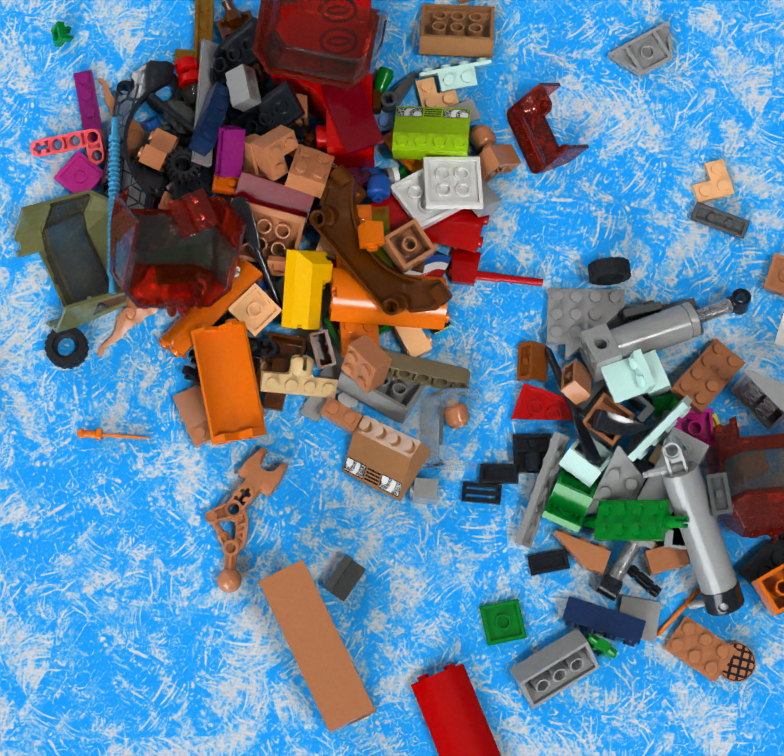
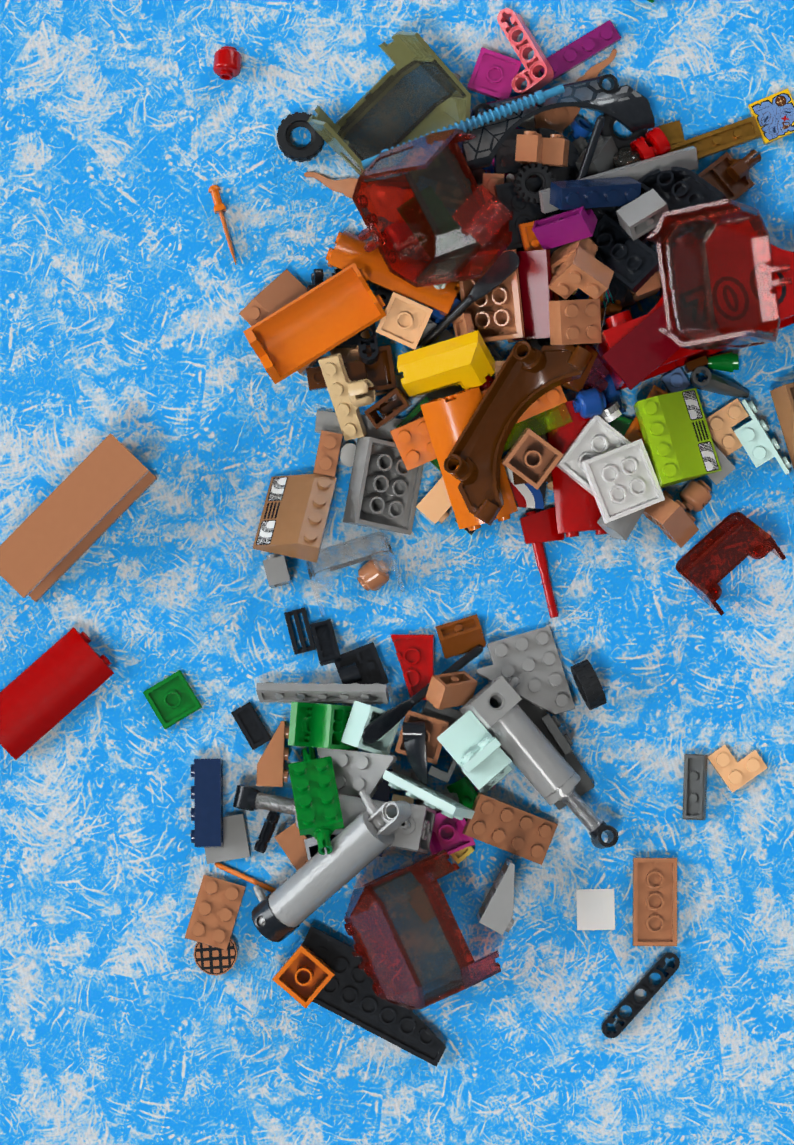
camera: 70 degrees right, 10 degrees up
(255, 482) = (226, 391): nougat piece -> none
(344, 578) = (160, 520): dark grey panel -> none
(366, 363) = (386, 460): nougat brick -> none
(371, 235) = (526, 414): orange brick -> none
(427, 372) = (405, 524): dark tan beam -> none
(554, 668) = (142, 768): light grey slope -> none
(601, 646) = (180, 809): green piece -> none
(719, 494) = (368, 877): dark grey panel -> none

